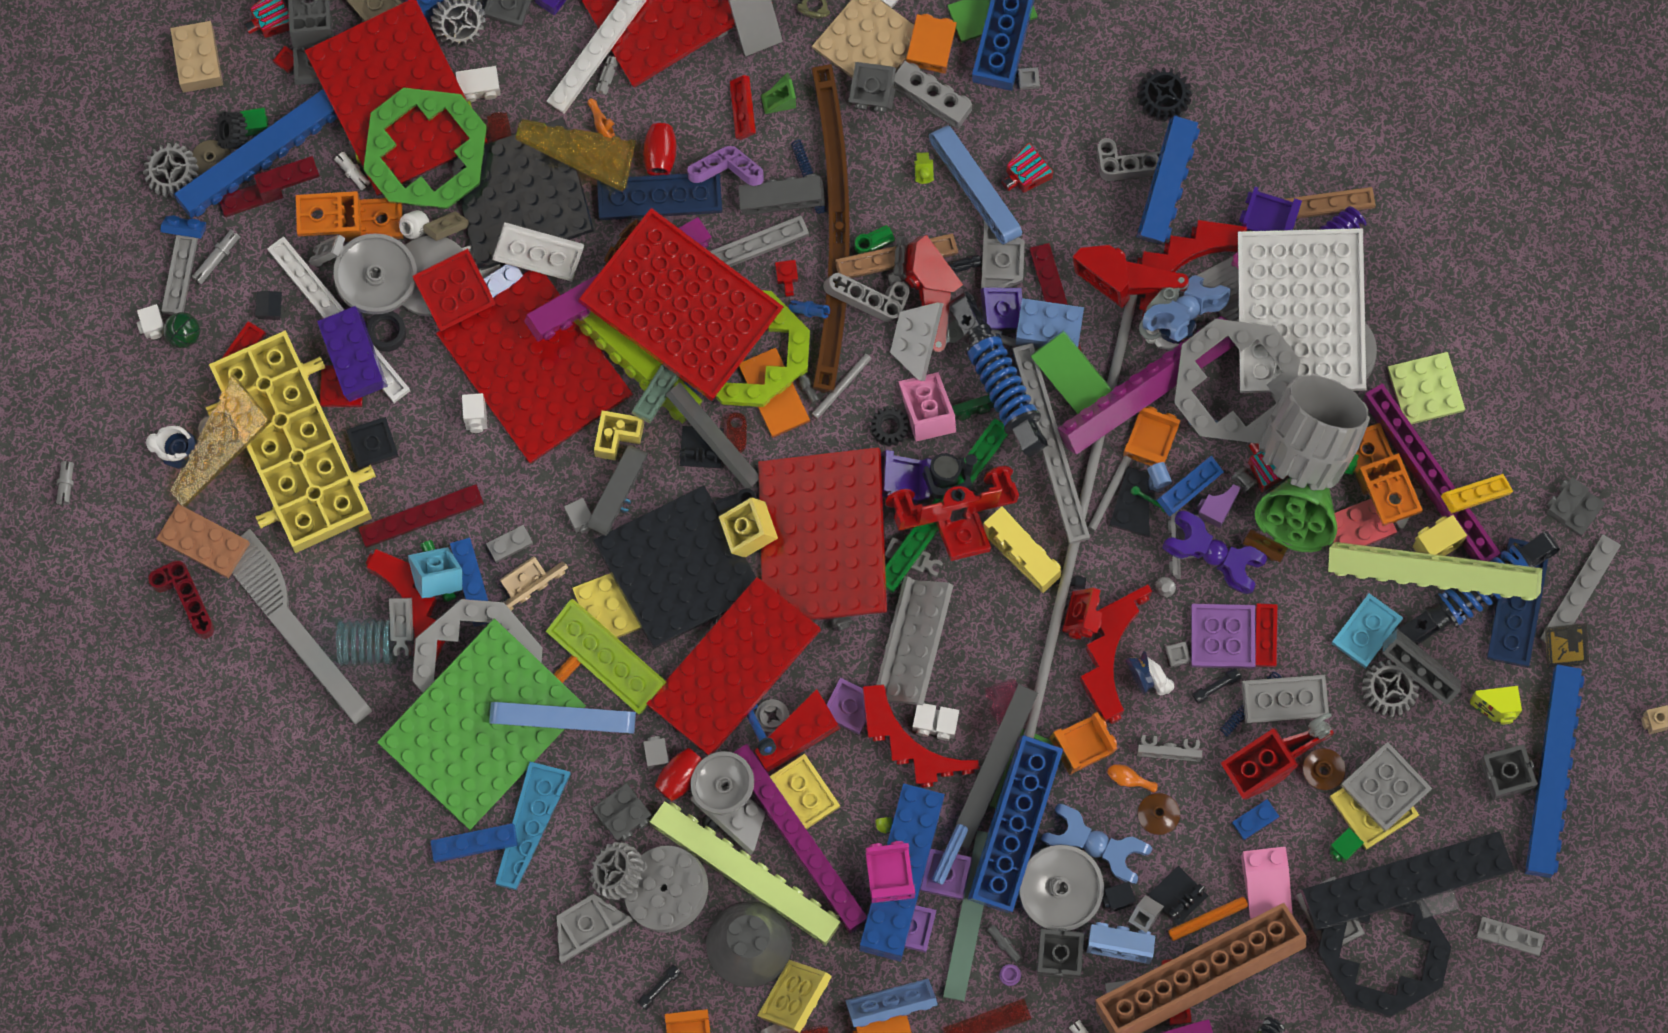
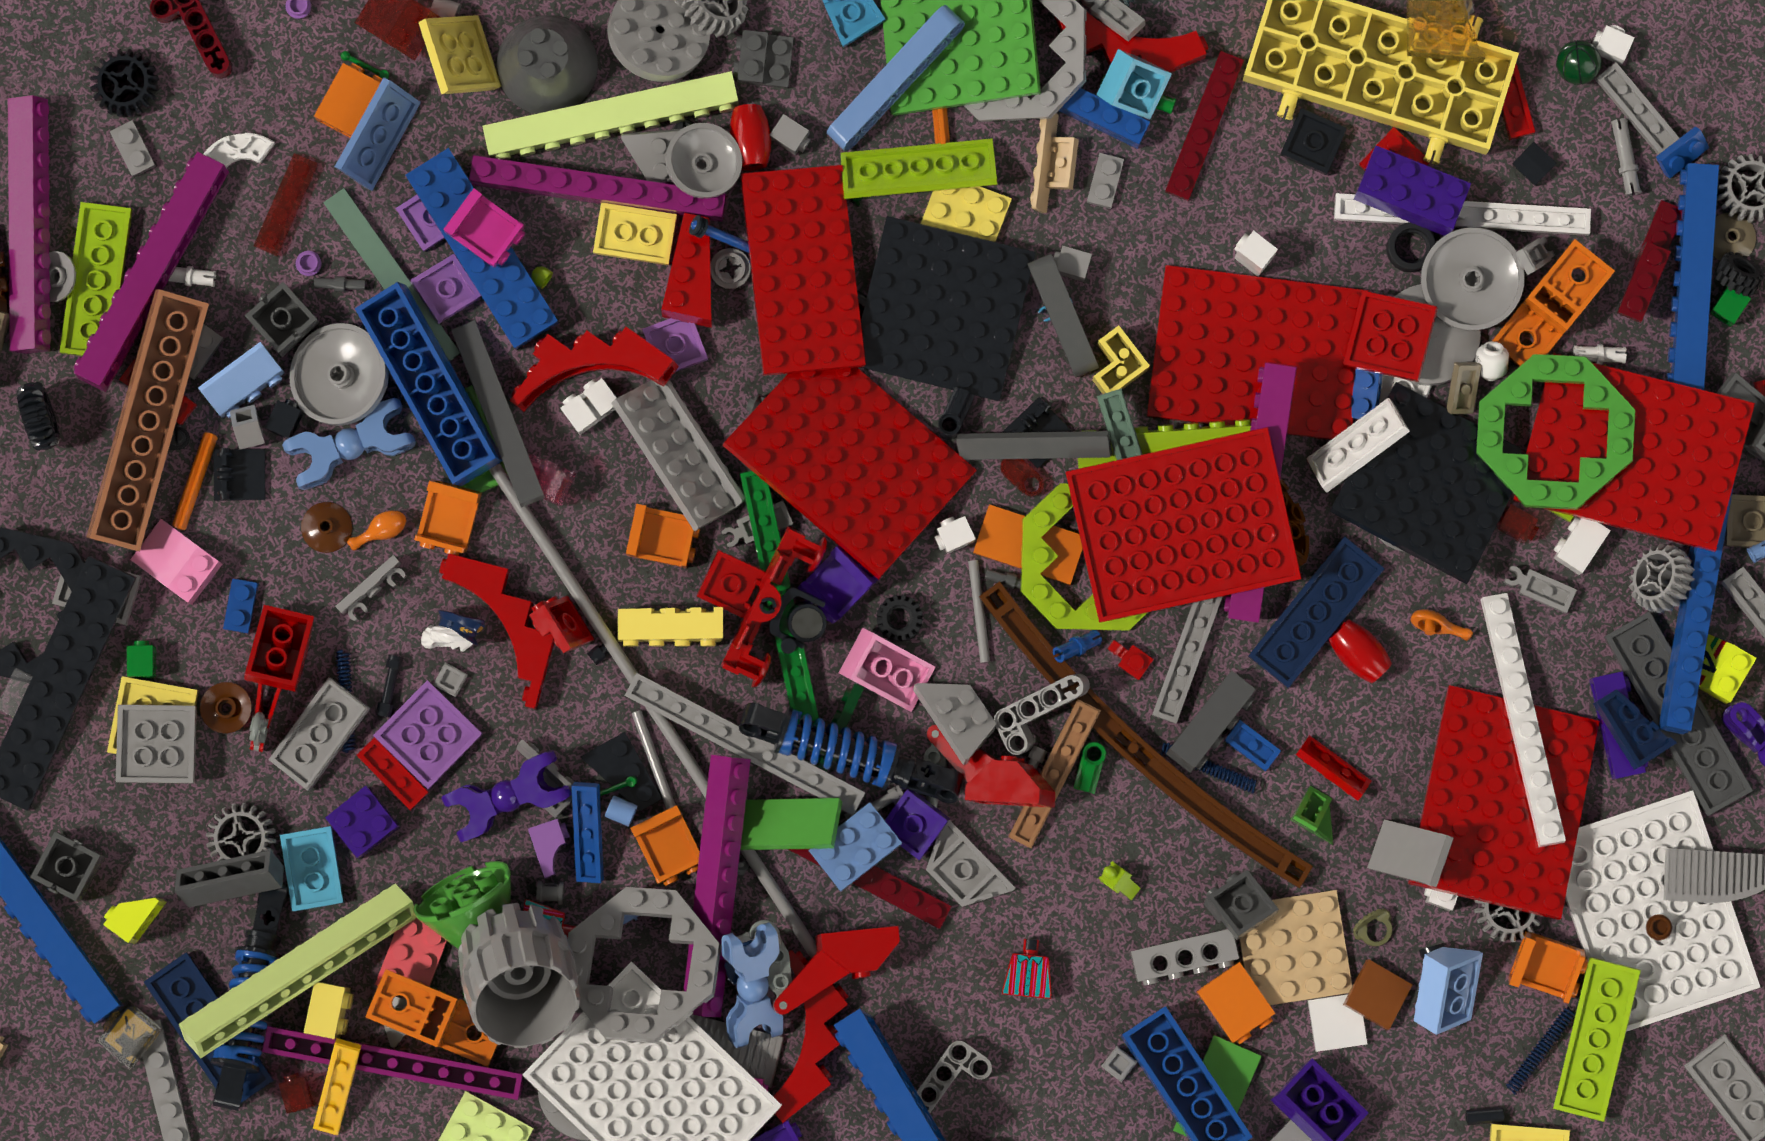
camera: 135 degrees right, 10 degrees up
(525, 83) = (1543, 589): none -> light grey plate
(586, 151) = (1411, 575): clear yellow wing -> none
(607, 75) = (1481, 672): light grey axle -> none
(726, 158) = (1287, 705): medium lavender beam -> none
(748, 527) = (919, 398): light yellow brick -> none
(772, 161) = (1252, 745): none -> blue plate
(809, 438) = (954, 534): none -> white brick
(900, 256) = (1049, 774): dark grey axle -> none
(950, 854) = (458, 304): medium blue axle -> none
(965, 263) = (993, 829): black axle -> none
(974, 607) = (661, 537): none -> orange panel
(975, 184) = (1057, 910): medium blue beam -> none
(1165, 587) = (519, 725): light grey plate -> none
(1271, 548) = (473, 852): reddish brown plate -> none
(1311, 624) = (362, 822): none -> dark purple brick
(1503, 517) = (296, 1093): none -> clear red brick

